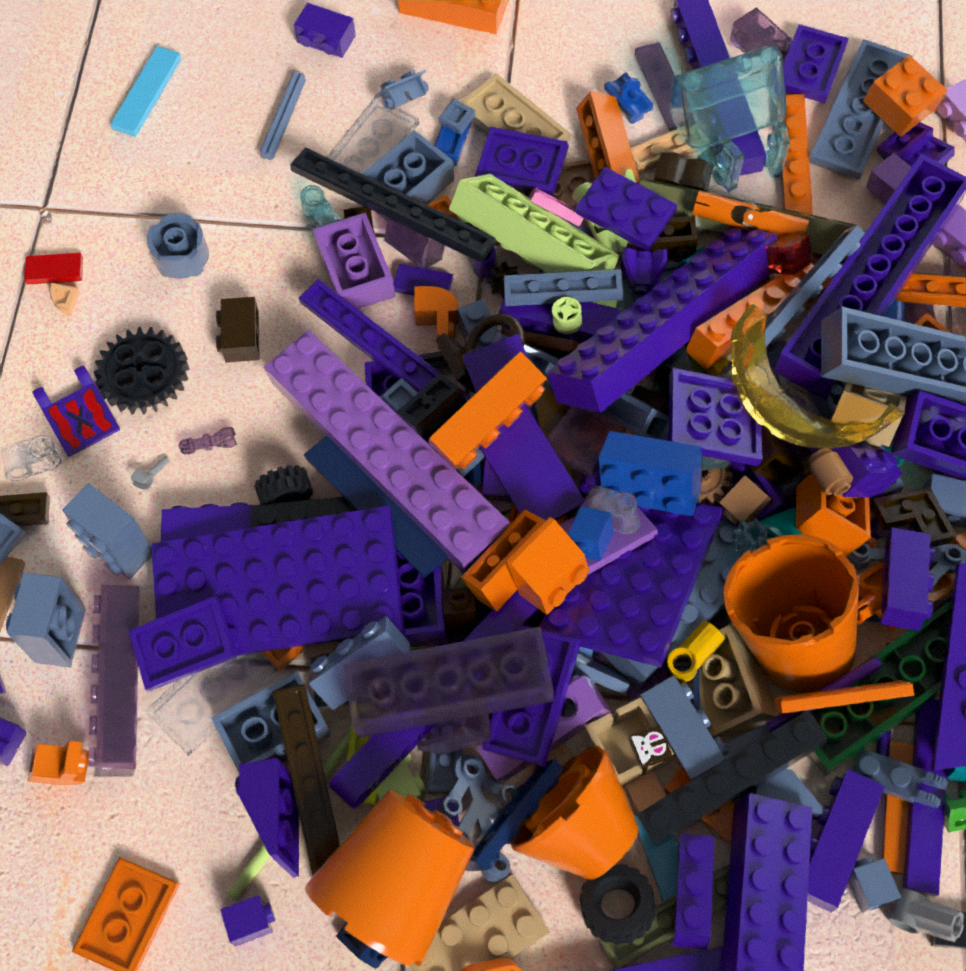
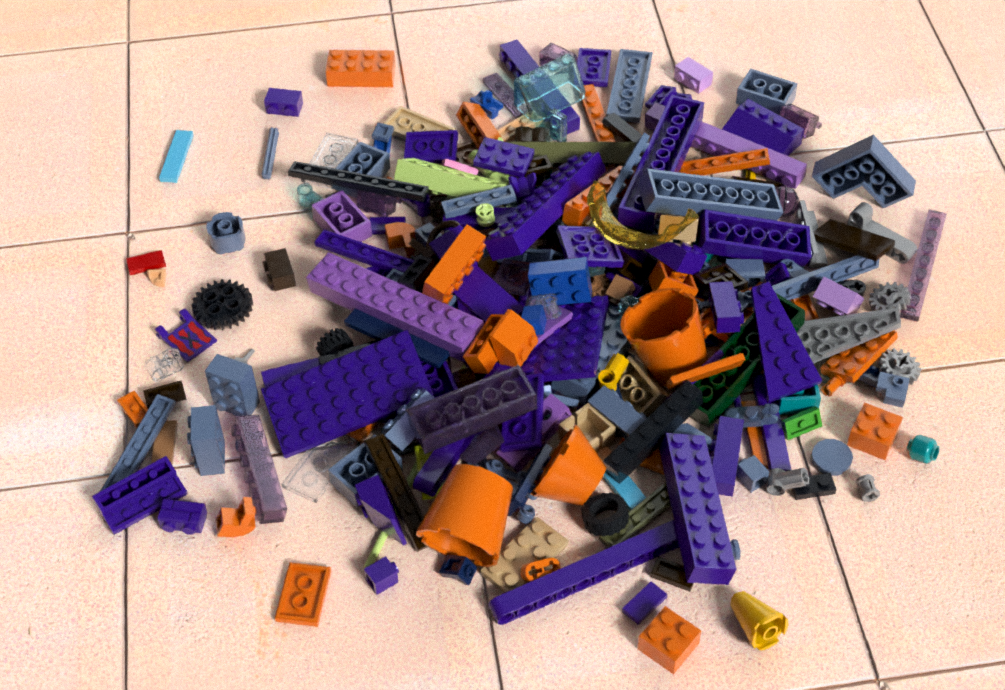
camera: 15 degrees left, 15 degrees down
(182, 643) = (297, 435): dark purple plate -> none
(208, 441) = (285, 331): clear purple piece -> none
(410, 83) = (344, 124): sand blue hinge -> none
(650, 746) = (600, 424): tile -> none
(693, 891) = (648, 494): dark purple brick -> none
(720, 210) = (560, 147): orange piece -> none
(777, 150) = (585, 108): clear light blue plate -> none
(789, 254) = (608, 161): clear red brick -> none
(830, 472) = (665, 257): medium nougat brick -> none
(832, 192) = (621, 128): none -> black tile
(905, 95) = (653, 71): orange brick -> none

